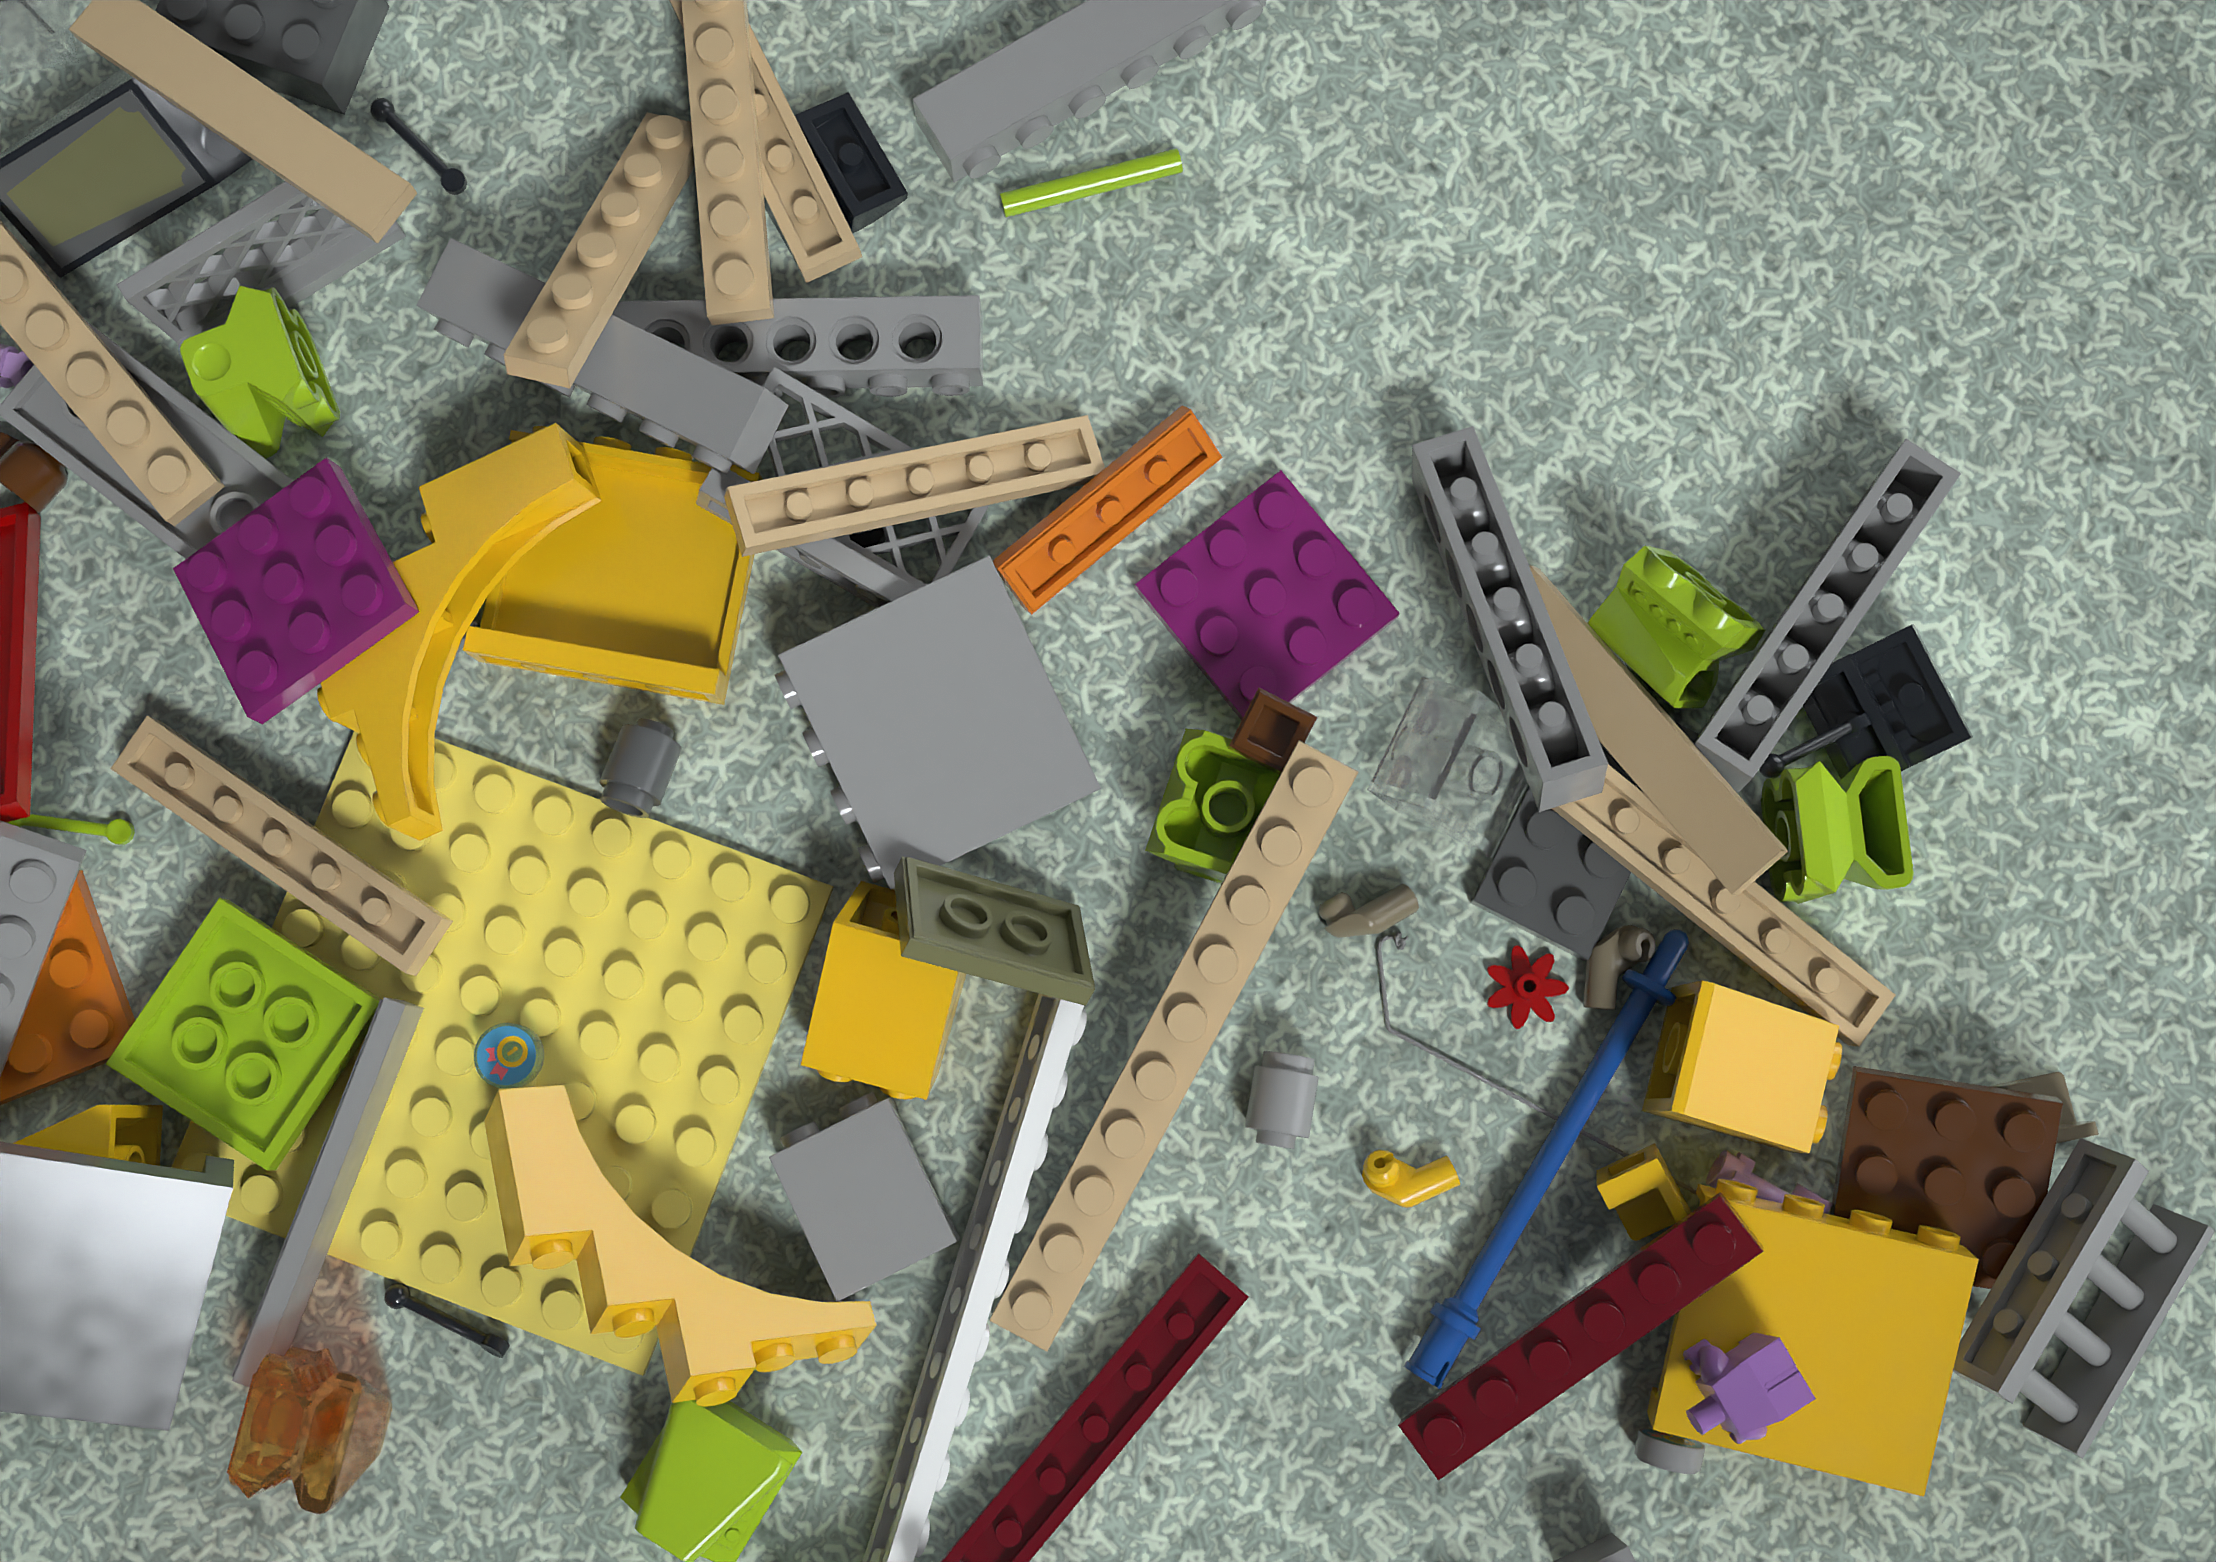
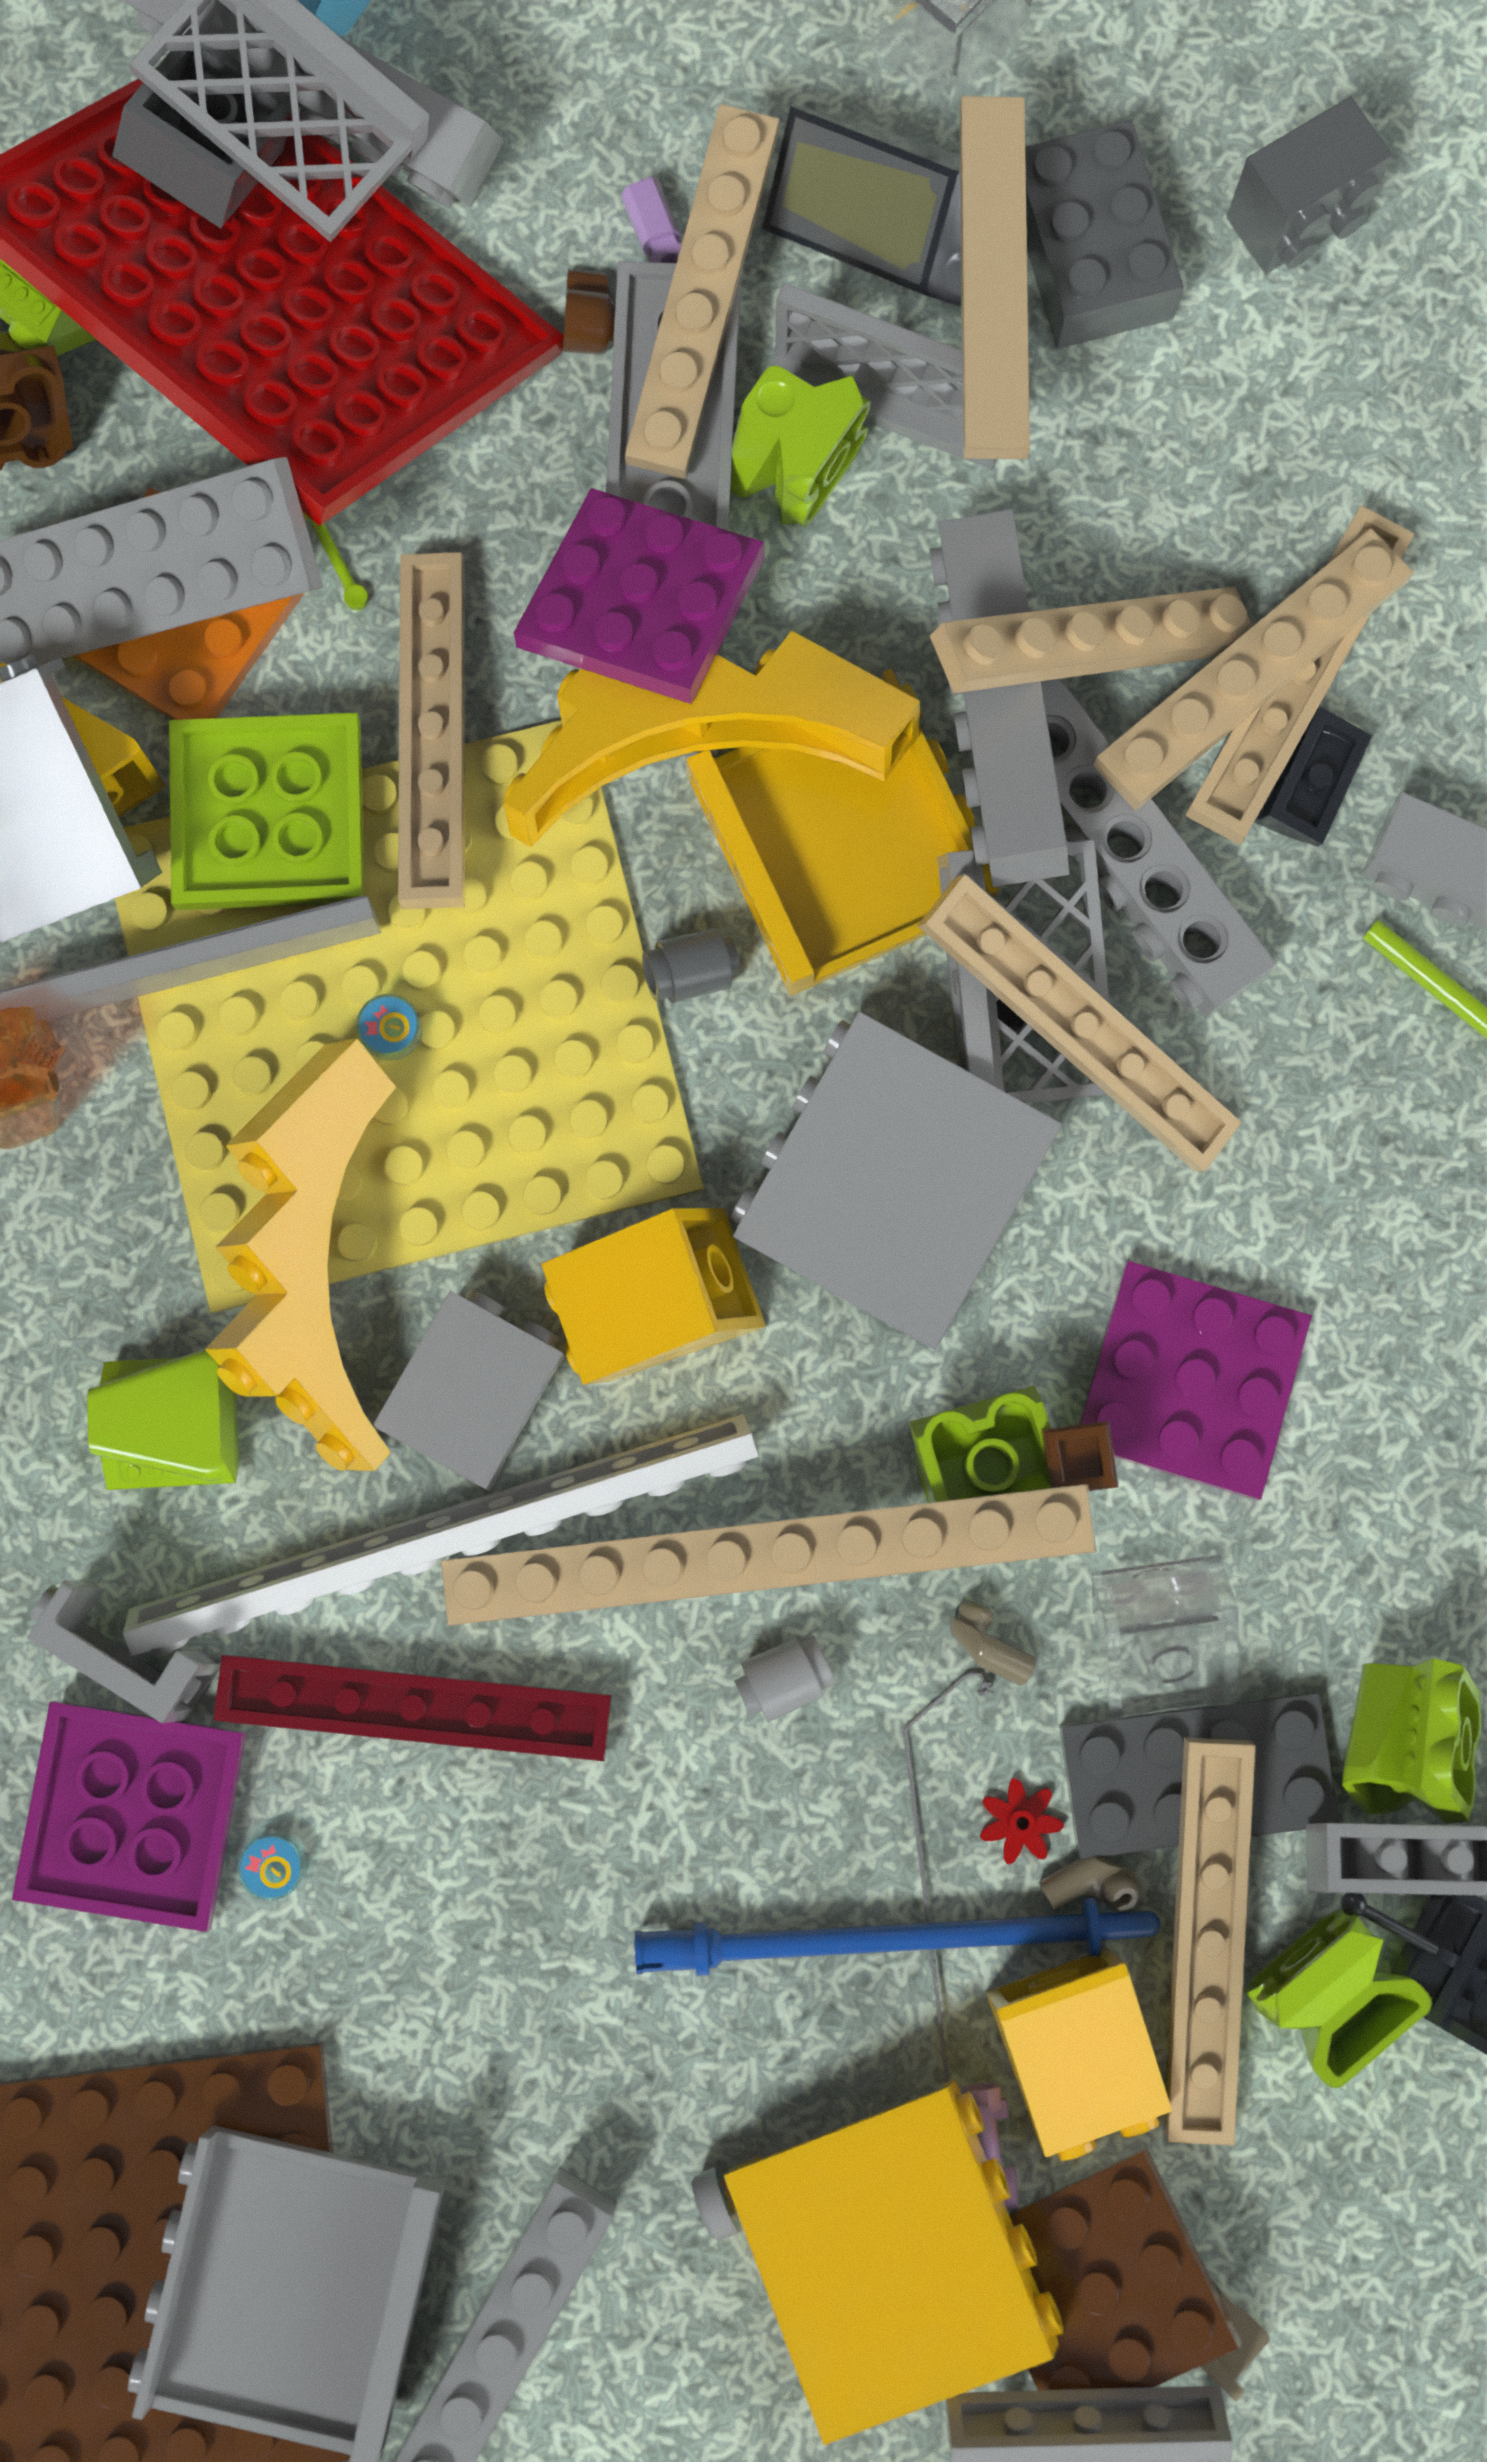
camera: 55 degrees right, 0 degrees up
(399, 1296) = (142, 1076): black hinge -> none
(451, 179) = (1065, 472): black hinge -> none
(992, 931) = (755, 1342): olive tile -> none
(1106, 509) = (1174, 1194): orange tile -> none
(1404, 1183) = (785, 1829): yellow arm -> none
(1508, 620) = (1316, 1591): light grey brick -> none
(1581, 1335) = (761, 2062): dark red plate -> none
(1642, 1192) = (915, 2039): yellow panel -> none
(1661, 755) = (1300, 1767): tan tile -> none
(1745, 1386) = (810, 2227): medium lavender piece -> none

